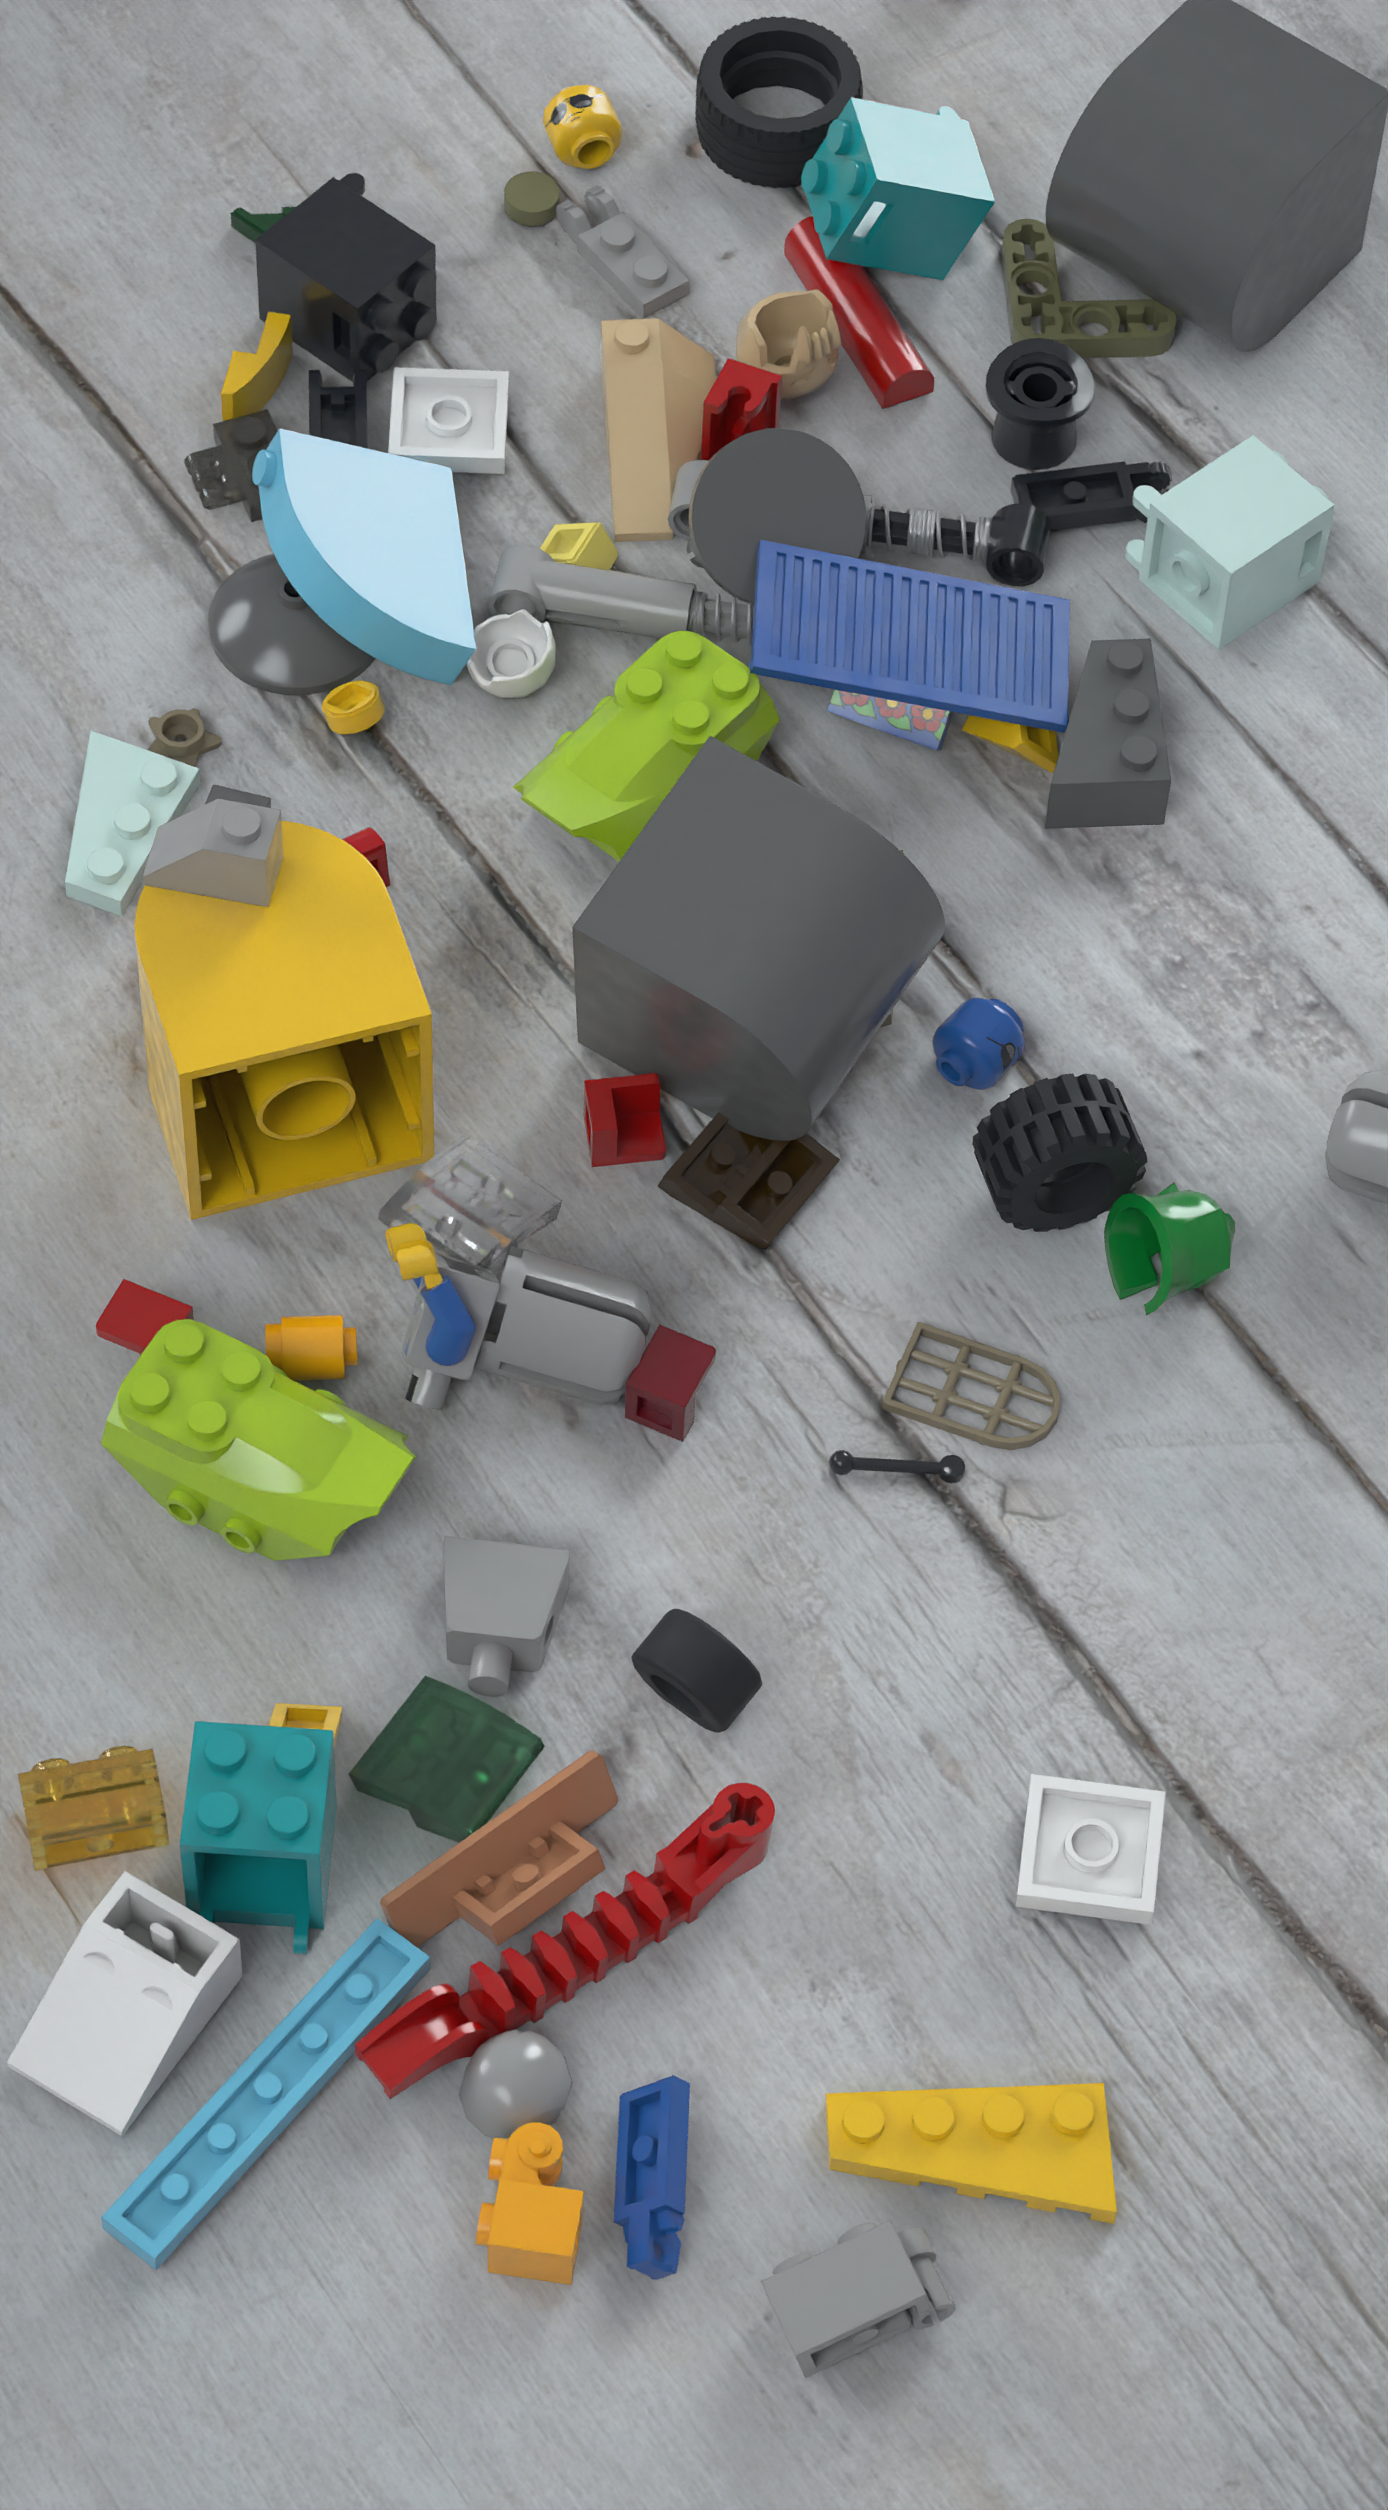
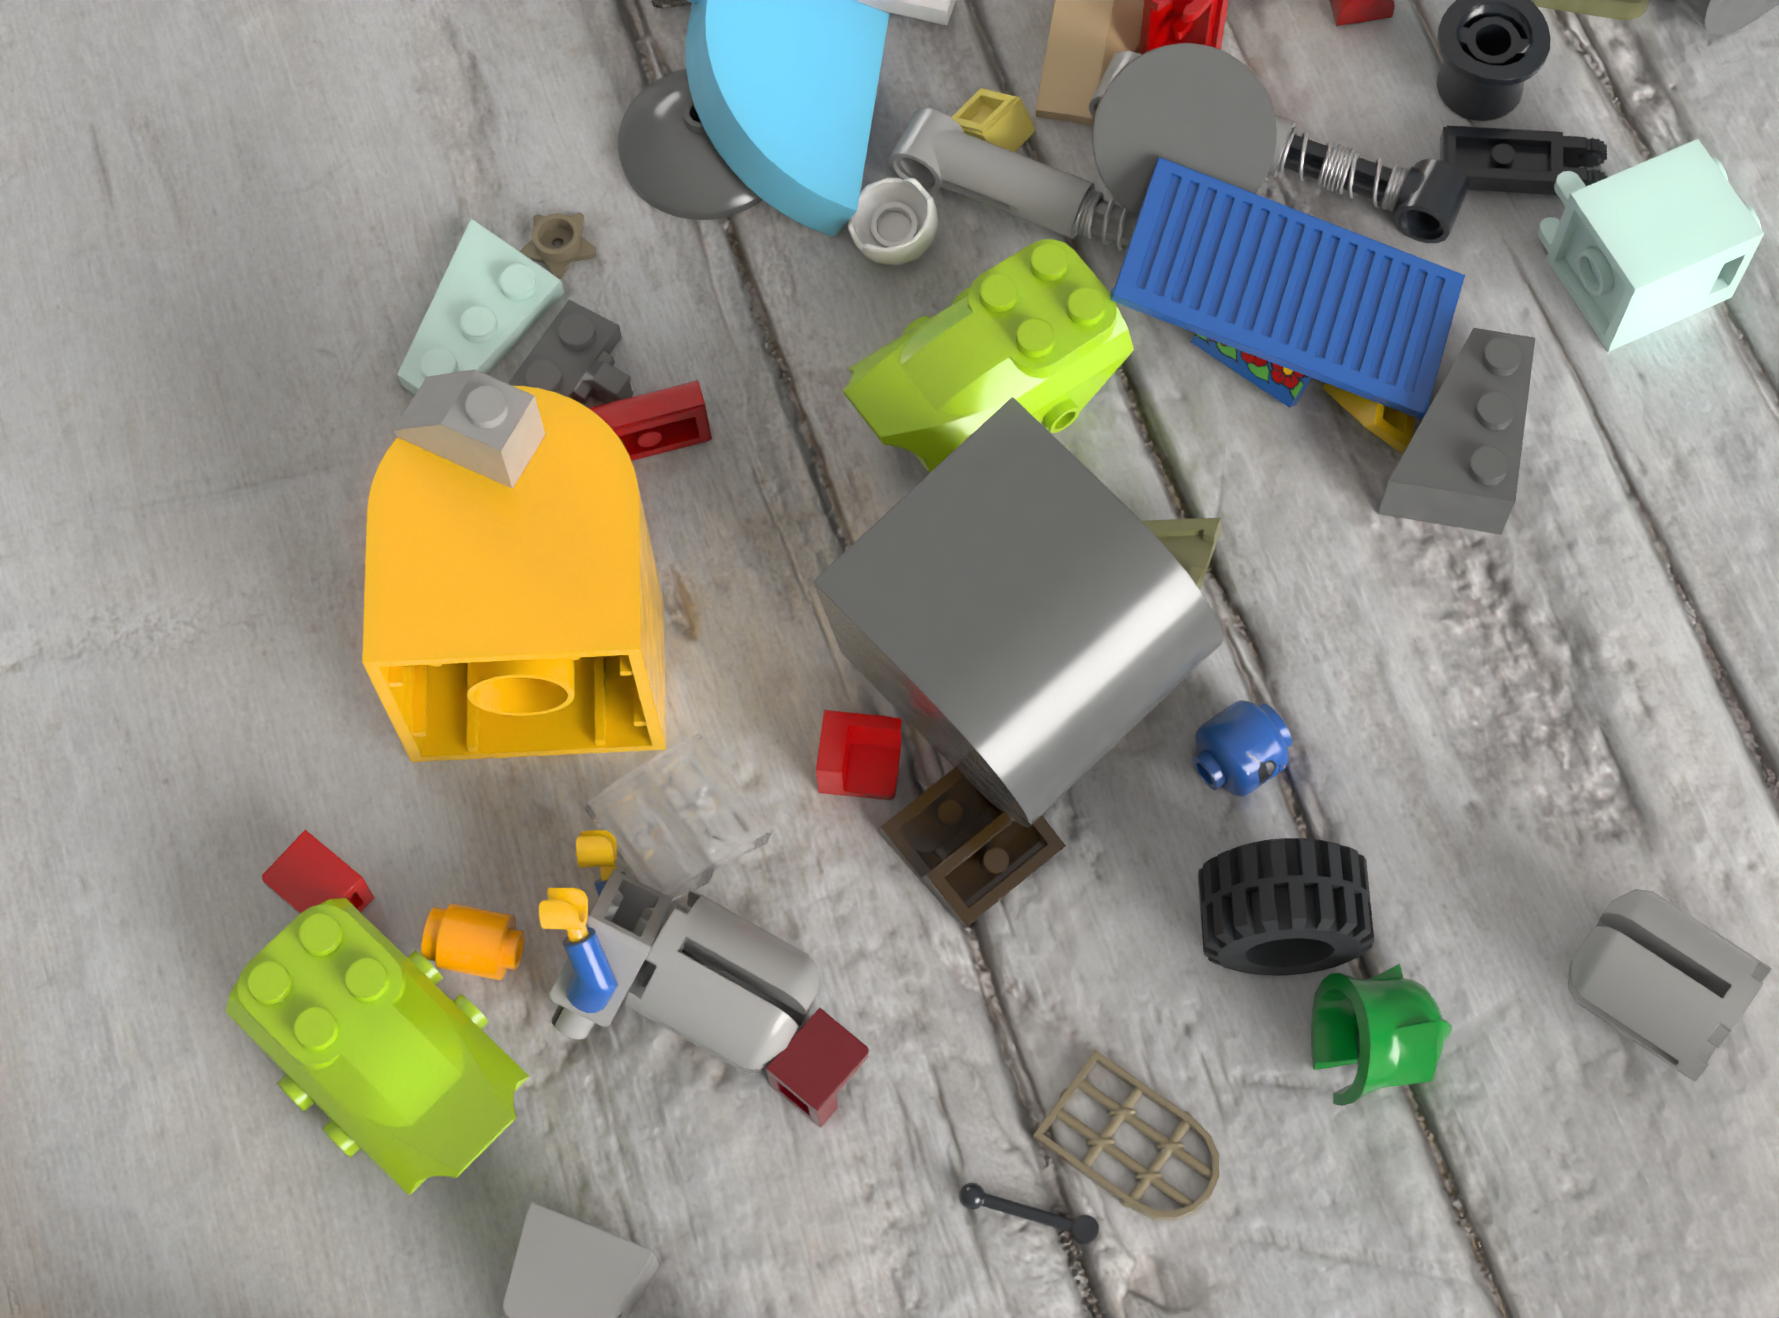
camera: 20 degrees right, 10 degrees up
(353, 707) = (727, 244): yellow tile -> none

